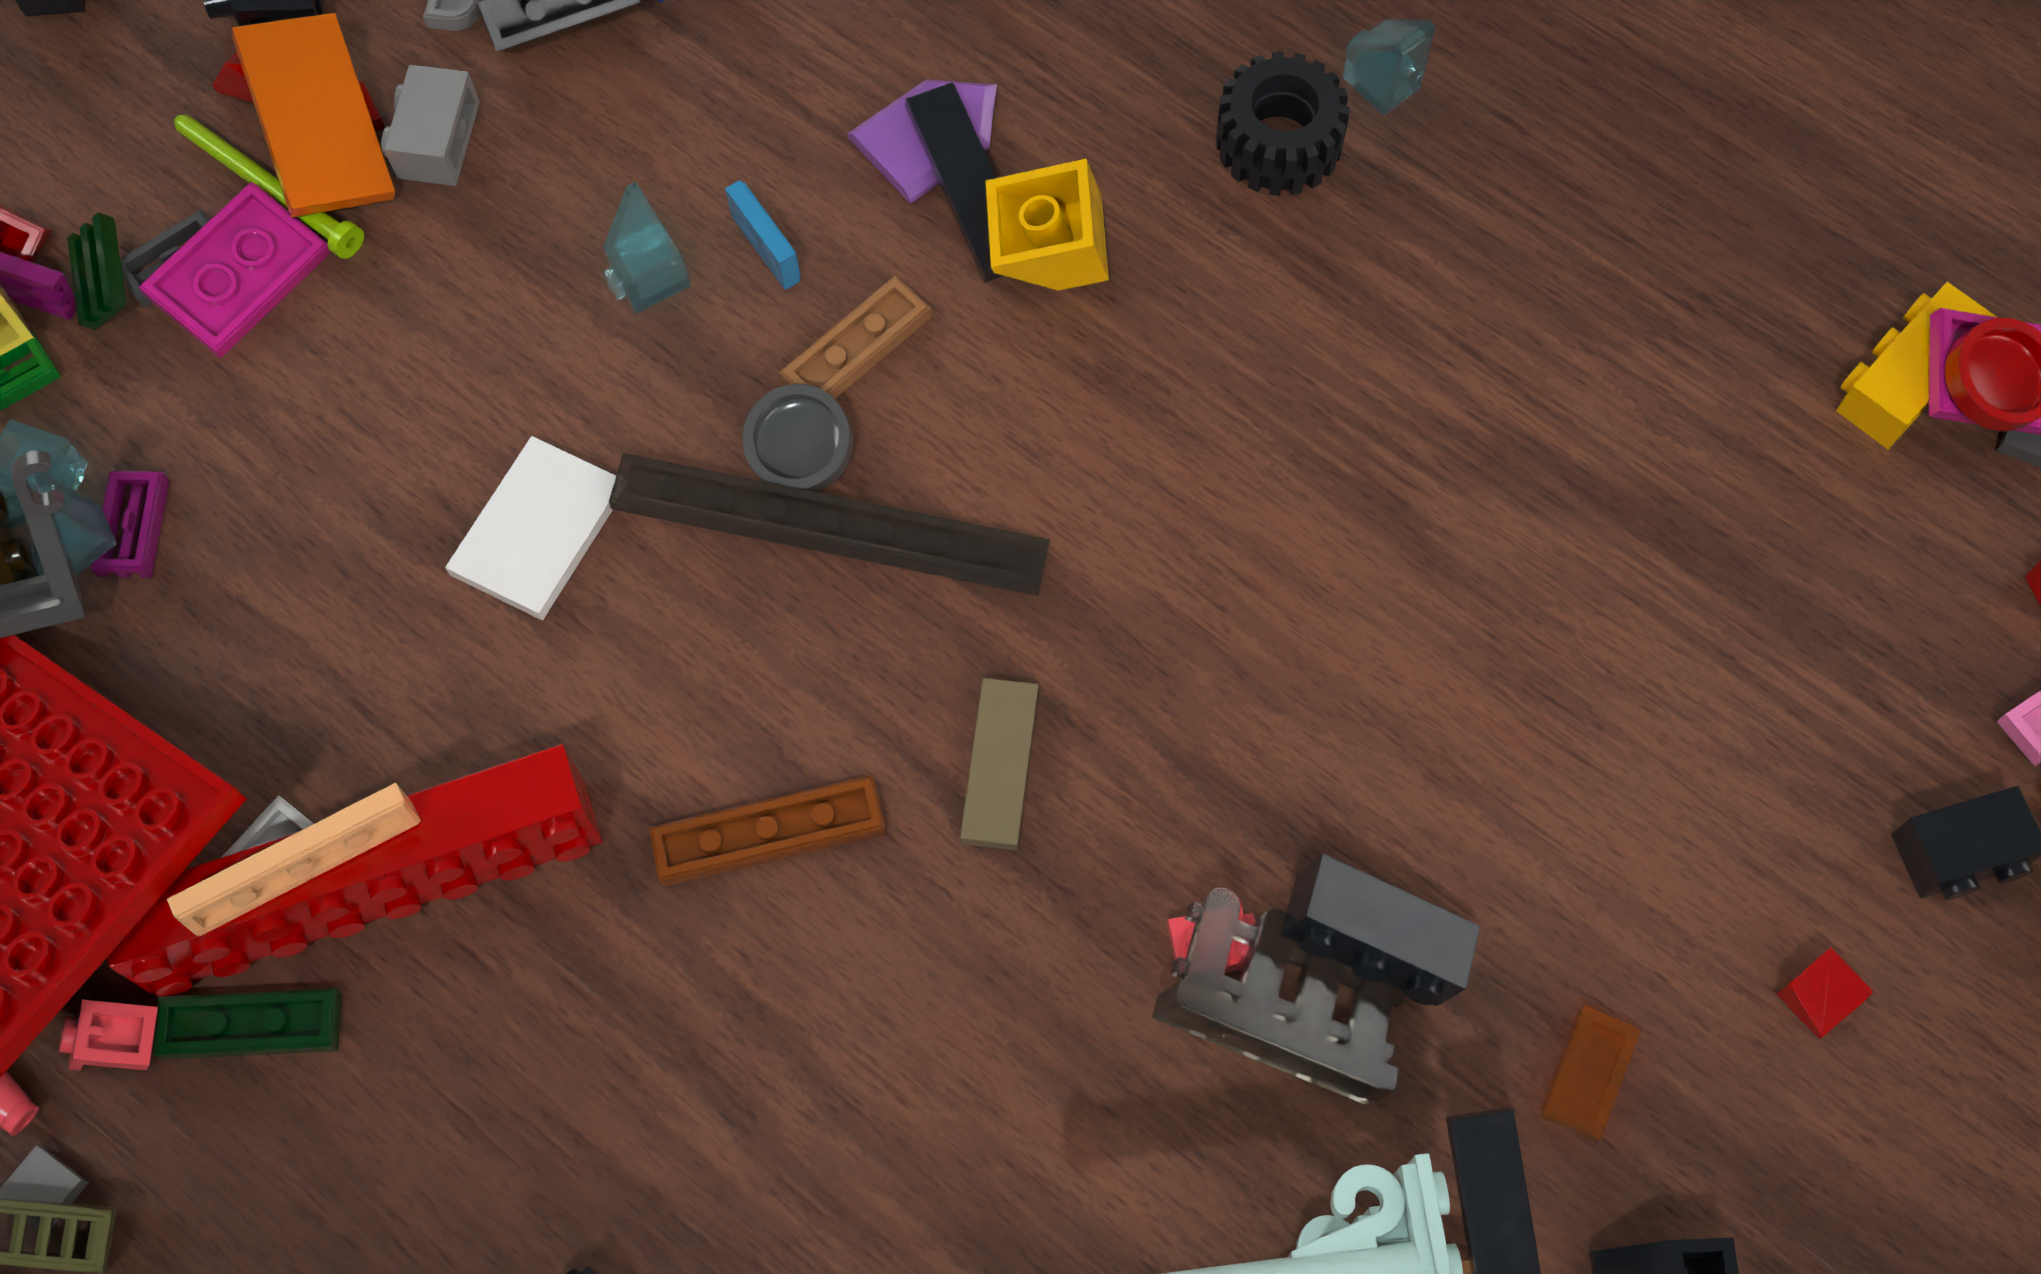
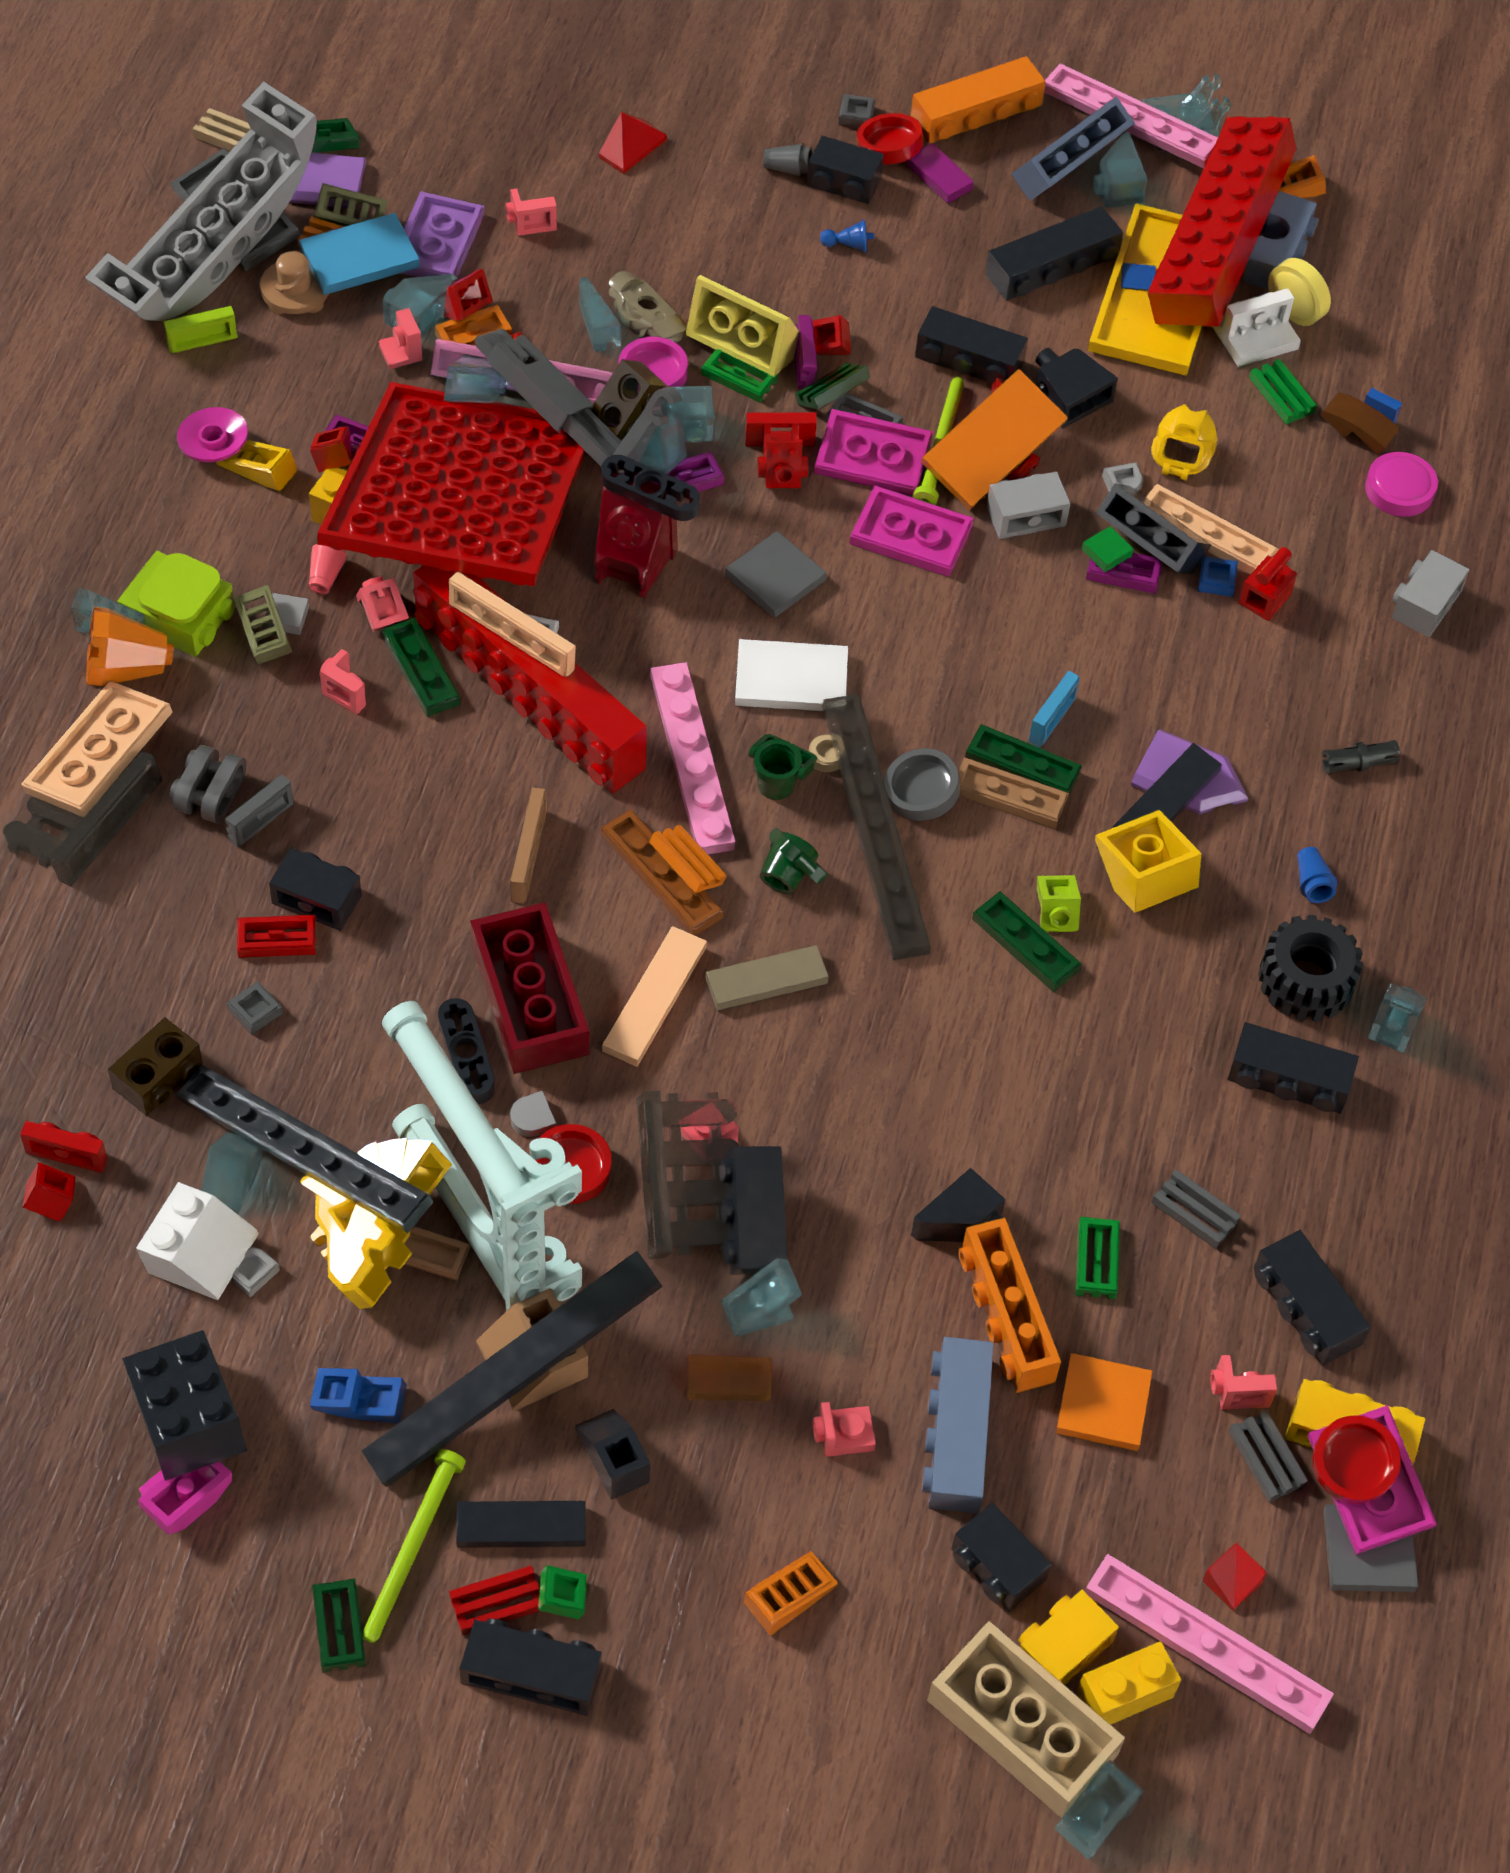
camera: 60 degrees right, 10 degrees down
(140, 79) = (970, 346): none -> black brick
(142, 371) = (782, 450): none -> red tile
(153, 556) = (641, 474): none -> black beam
(202, 622) = (633, 539): none -> dark red piece
(229, 1155) = (341, 684): none -> coral bracket
(360, 477) = (775, 574): none -> dark grey tile
(386, 281) = (911, 531): none -> dark pink tile
(555, 65) = (1107, 549): none -> green tile
(593, 67) = (1127, 576): none -> magenta tile
(602, 711) = (692, 758): none -> bright pink plate
(642, 254) = (1003, 650): clear light blue slope -> none
(643, 993) = (528, 845): none -> medium nougat tile
(681, 542) = (825, 753): none -> tan tile
(684, 599) = (779, 765): none -> dark green piece
(772, 785) = (688, 859): none -> orange tile
(813, 308) = (1022, 759): none -> dark green tile
(844, 655) = (789, 862): none -> dark green piece
(888, 1090) = (530, 988): none -> dark red brick
(891, 1233) = (469, 1035): none -> black beam
(964, 924) = (654, 996): none -> light nougat tile
(1053, 356) = (1059, 903): none -> lime bracket
(1083, 1173) = (532, 1115): none -> light grey tile
(1086, 423) = (1026, 941): none -> dark green tile
(1146, 62) = (1315, 876): none -> blue cone
(1187, 1150) = (588, 1151): none -> red piece
(1408, 208) = (1293, 1068): none -> black brick
(1459, 671) = (962, 1205): none -> black slope
(1504, 979) = (762, 1299): none -> clear light blue slope
(1573, 552) = (1096, 1287): none -> green tile
(1586, 383) = (1199, 1203): none -> dark grey tile
(1630, 673) = (1010, 1306): none -> orange brick
(1720, 957) = (844, 1430): none -> coral bracket
(1728, 331) = (1310, 1298): none -> black brick
(1769, 810) = (960, 1426): none -> sand blue brick
(1781, 626) = (1104, 1402): none -> orange tile
(1823, 466) = (1242, 1391): none -> coral bracket
(1825, 993) = (849, 1497): red slope -> none
(1922, 1156) = (775, 1620): none -> orange slope
(1937, 465) = (1286, 1457): none -> dark grey tile

